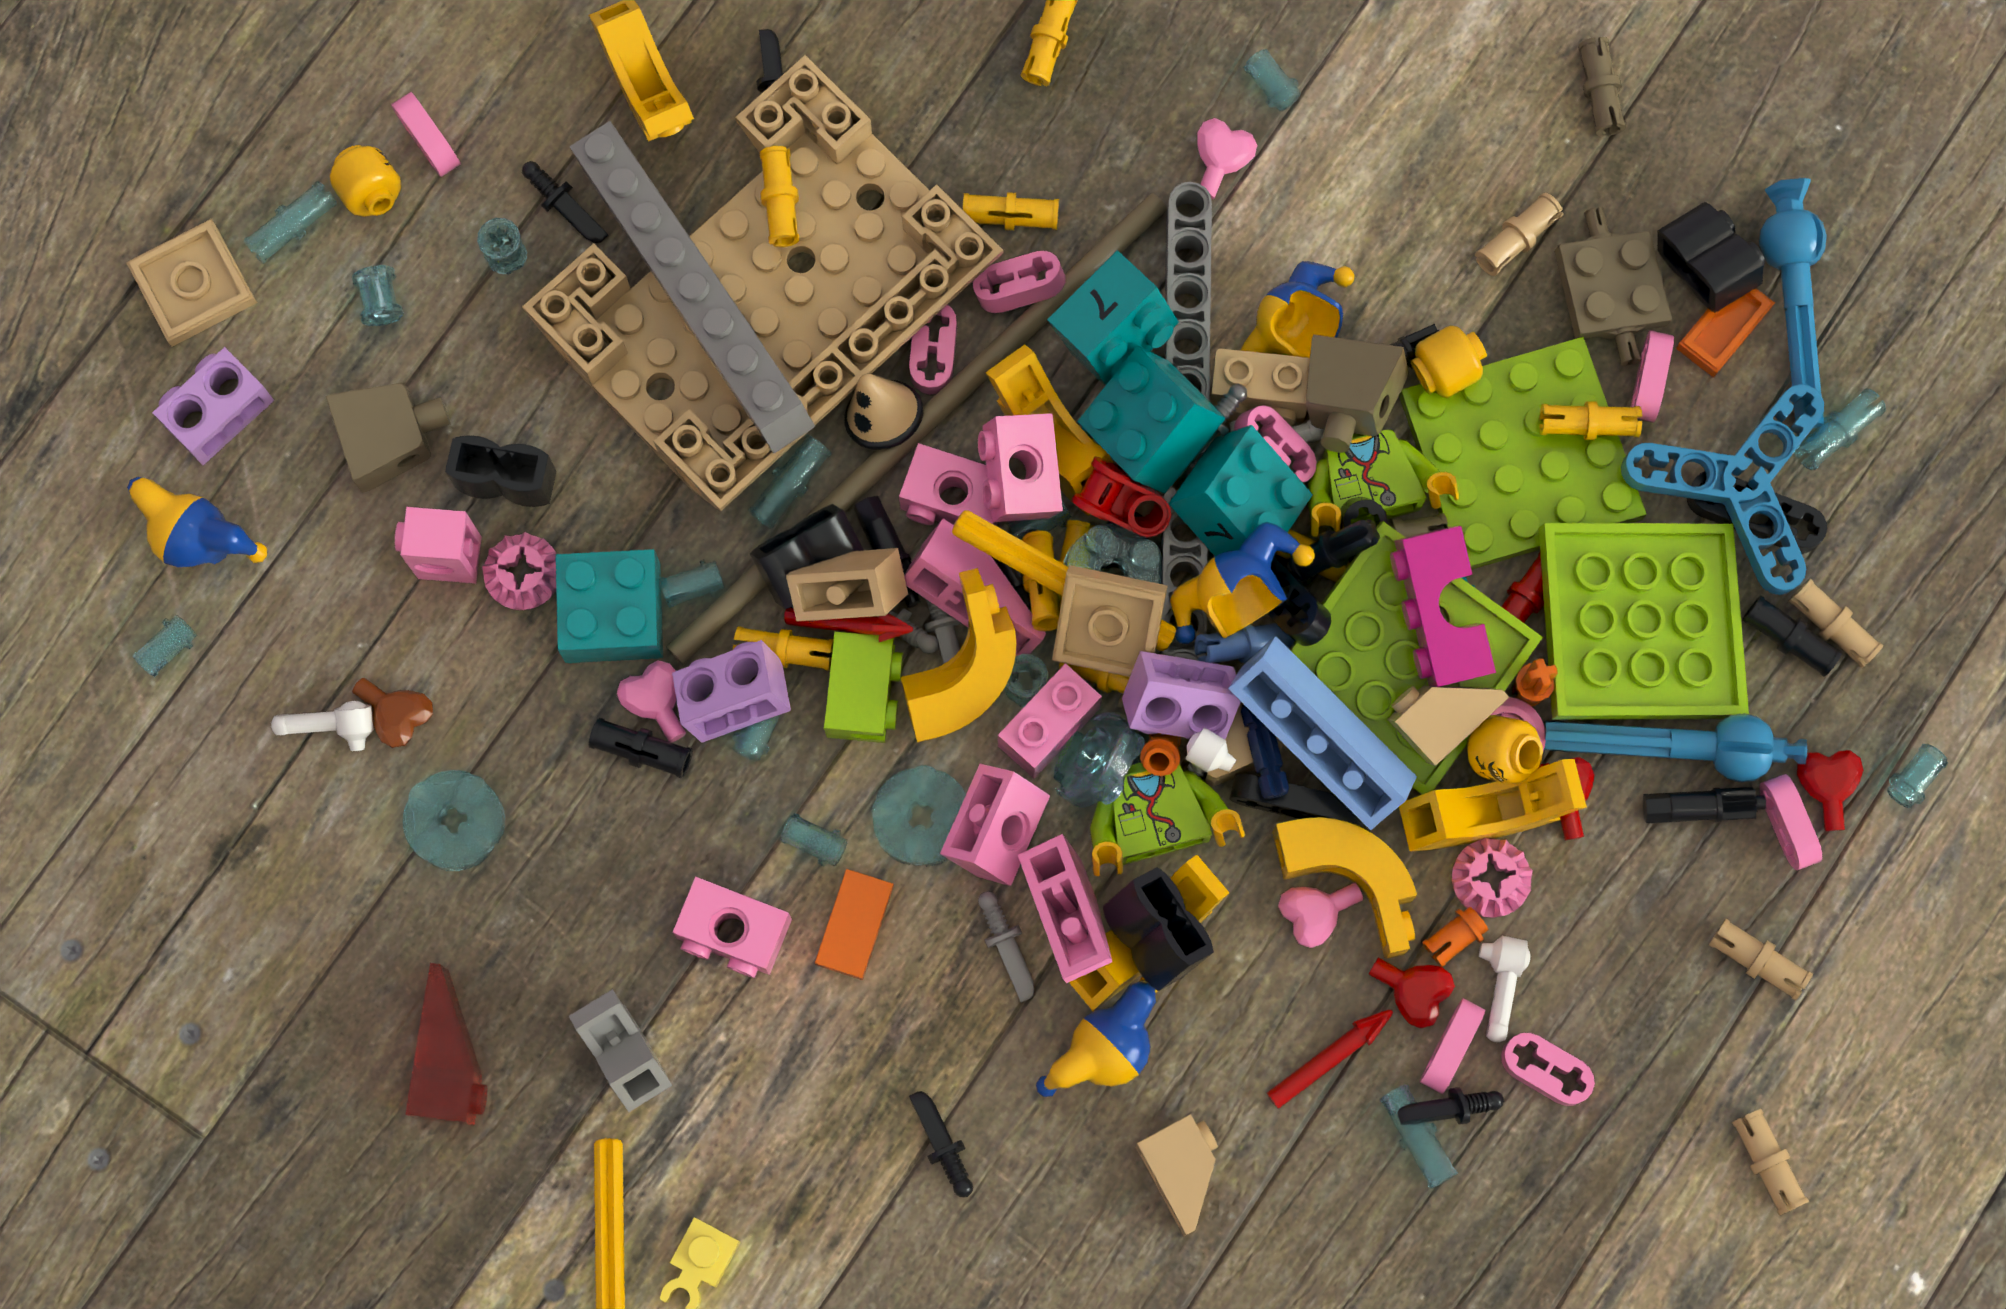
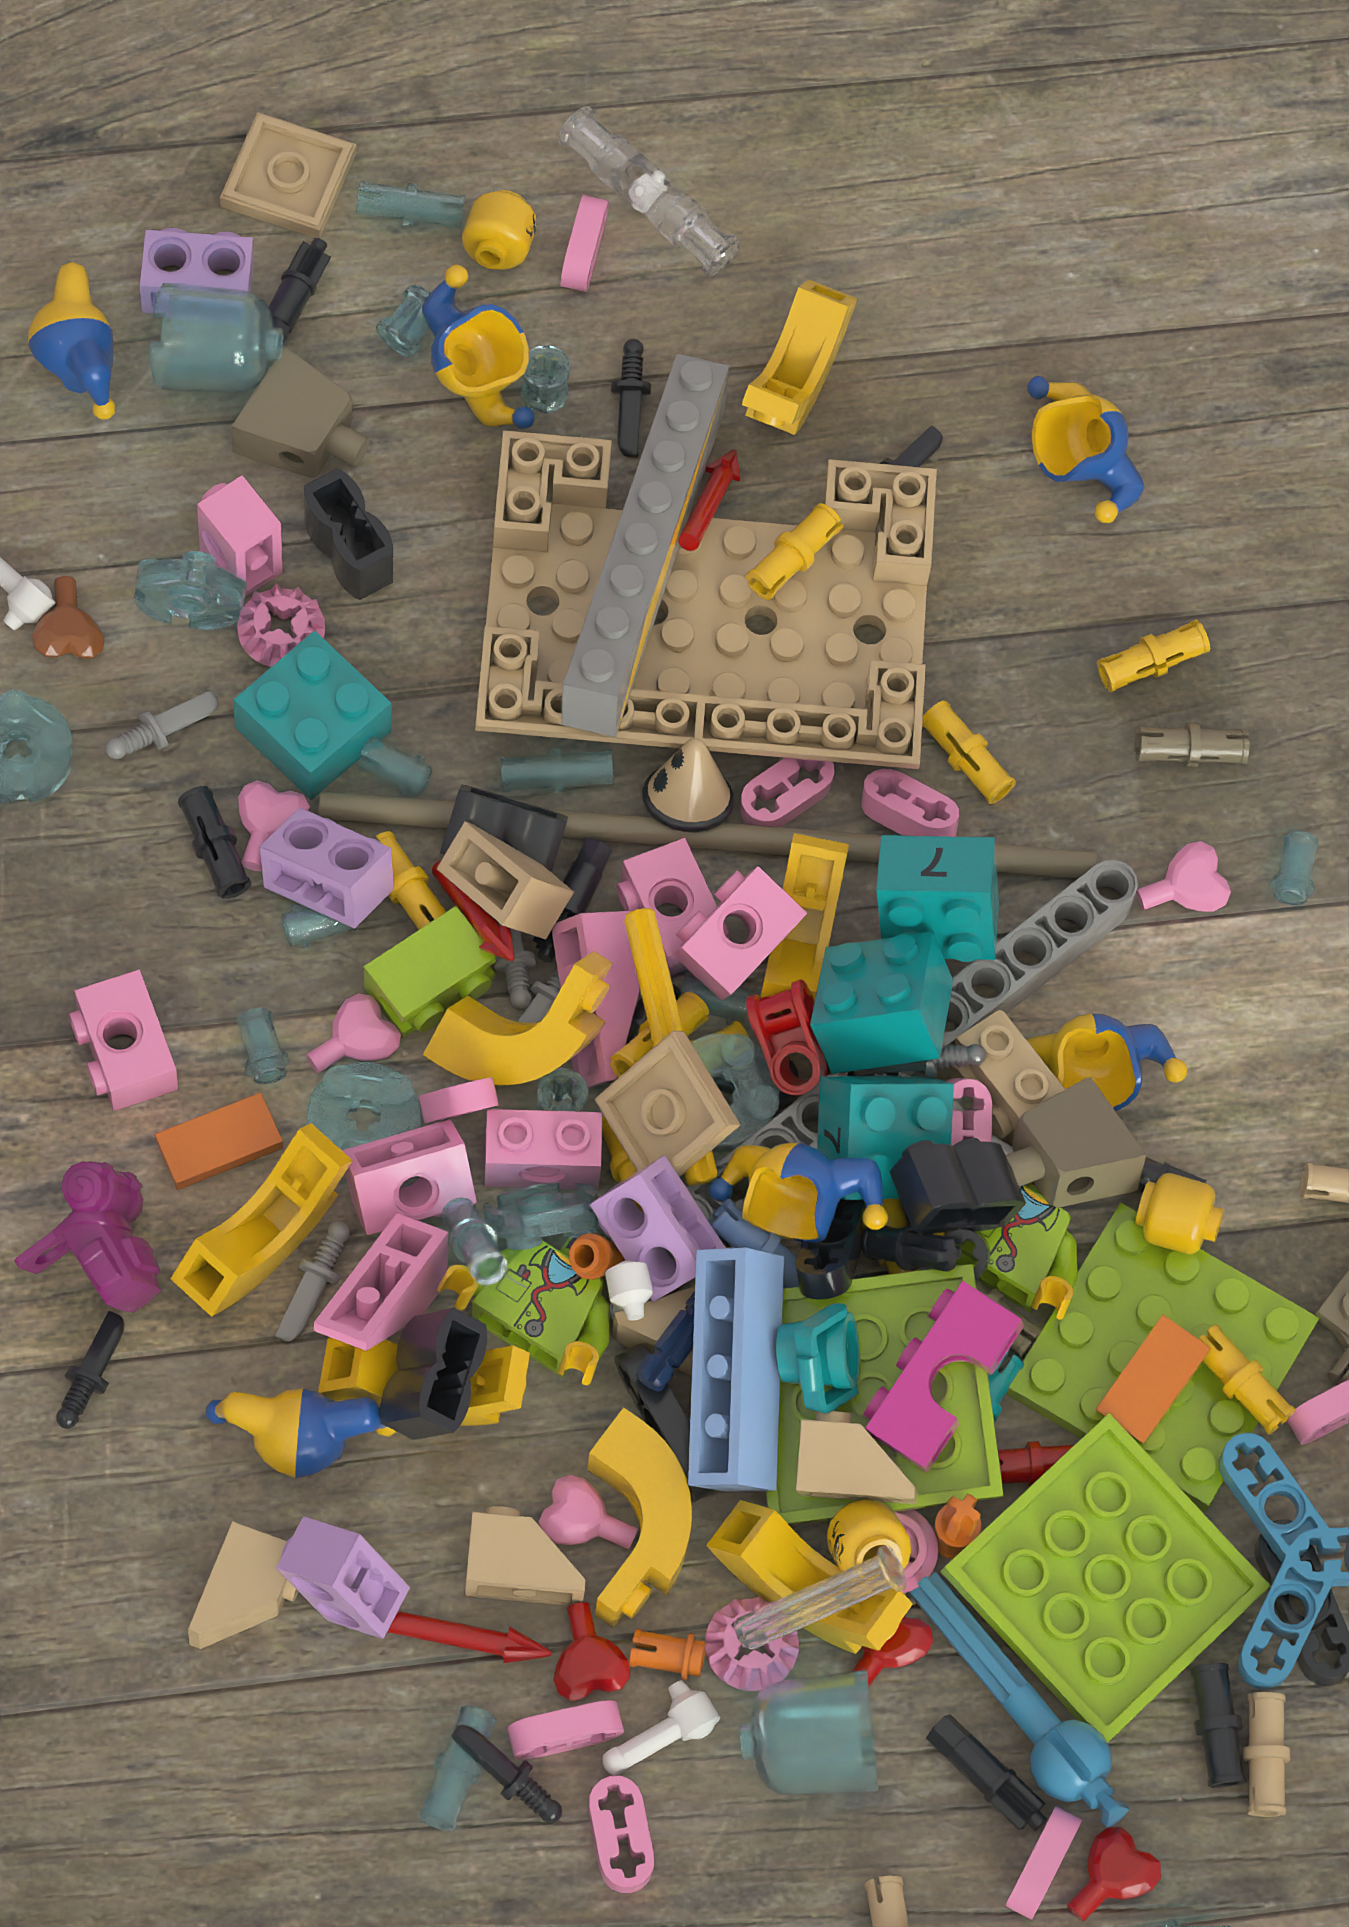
camera: 40 degrees right, 10 degrees down
(278, 437) = (212, 339): none -> clear light blue cylinder
(286, 358) = (298, 284): none -> black piece
(447, 273) = (477, 352): none -> yellow piece
(450, 607) = (190, 590): none -> clear light blue plate
(451, 59) = (669, 210): none -> clear piece
(522, 715) = (156, 728): none -> light grey piece
(673, 190) = (722, 473): none -> red piece
(859, 770) = (357, 1034): none -> bright pink rock
(865, 1062) = (101, 1236): none -> magenta piece
(946, 947) = (268, 1227): none -> yellow arch
(972, 747) = (458, 1100): none -> bright pink beam
(1083, 822) = (474, 1241): none -> clear light blue pin
(1131, 68) = (1191, 745): none -> dark tan pin
(1238, 1105) = (342, 1577): none -> lavender brick
(1313, 979) = (518, 1561): none -> tan slope
(1322, 484) = (956, 1186): none -> black brick
(1362, 672) = (821, 1354): none -> teal piece
(1519, 812) = (821, 1599): none -> clear axle
(1546, 475) = (1154, 1378): none -> orange tile
(1595, 893) = (813, 1735): none -> clear light blue cylinder

